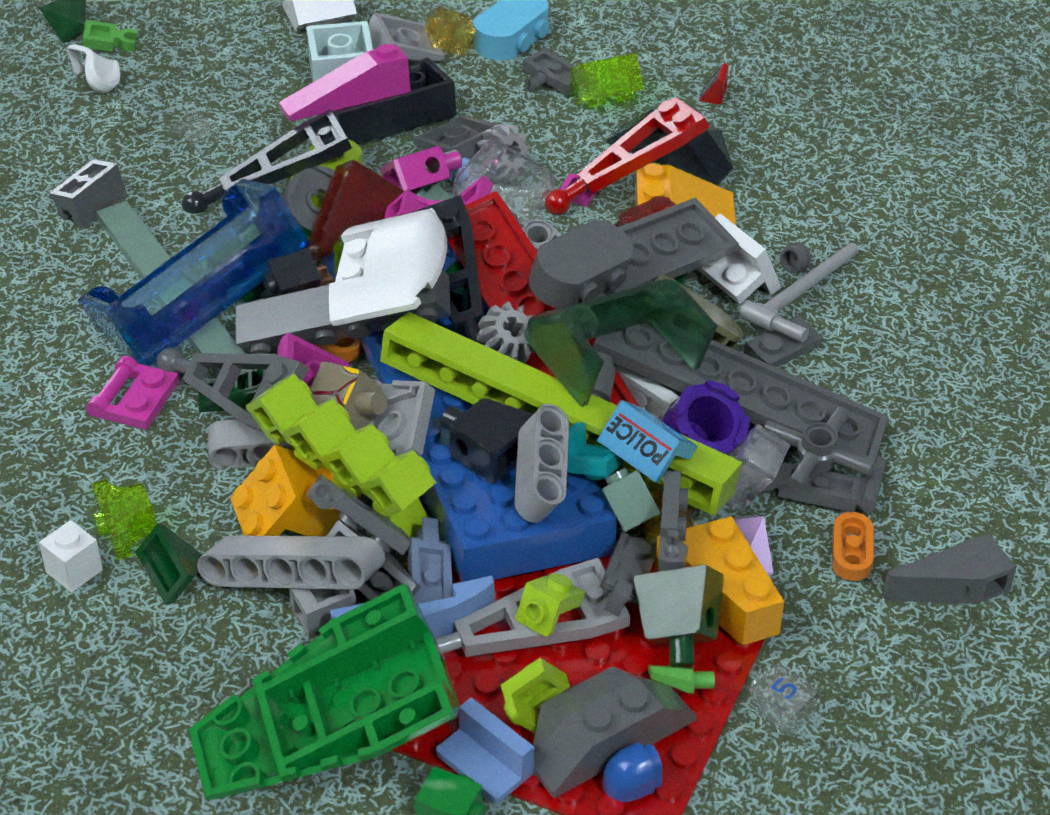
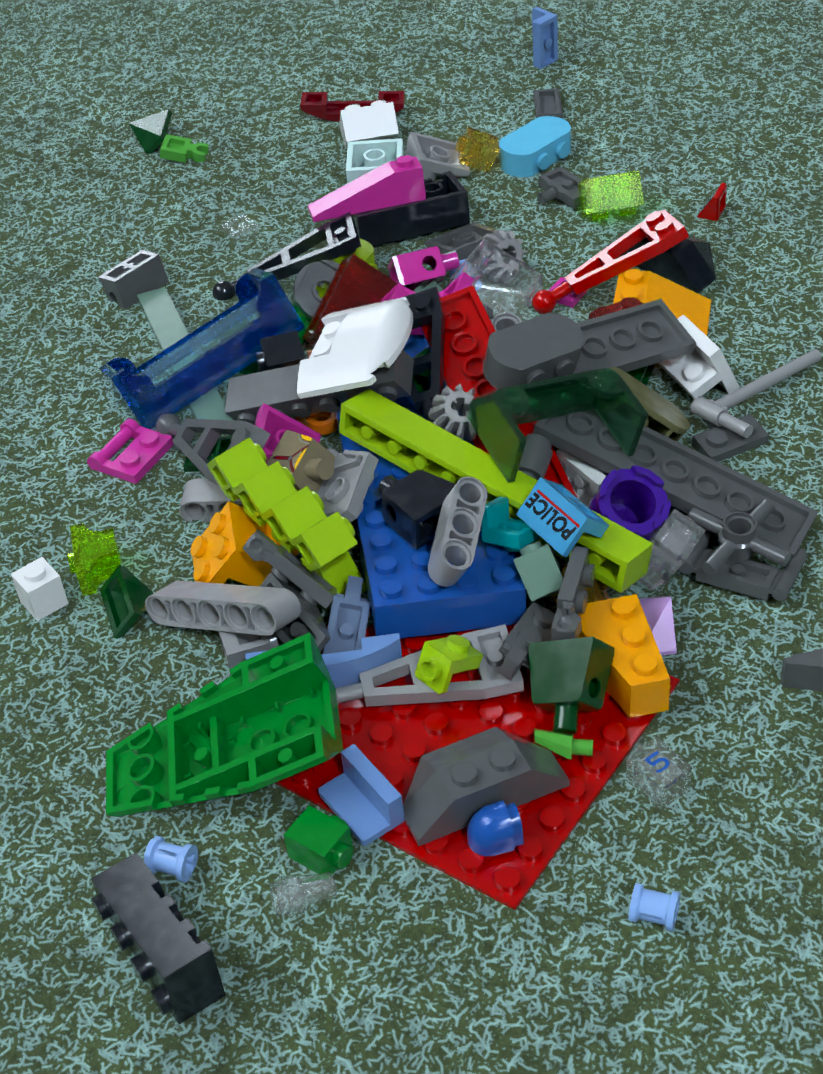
camera: 15 degrees right, 0 degrees up
(100, 72) = (167, 178): white piece -> none
(529, 690) = (411, 741): lime bracket -> none
(795, 255) = (759, 359): dark grey plate -> none
(852, 548) = (756, 634): orange plate -> none

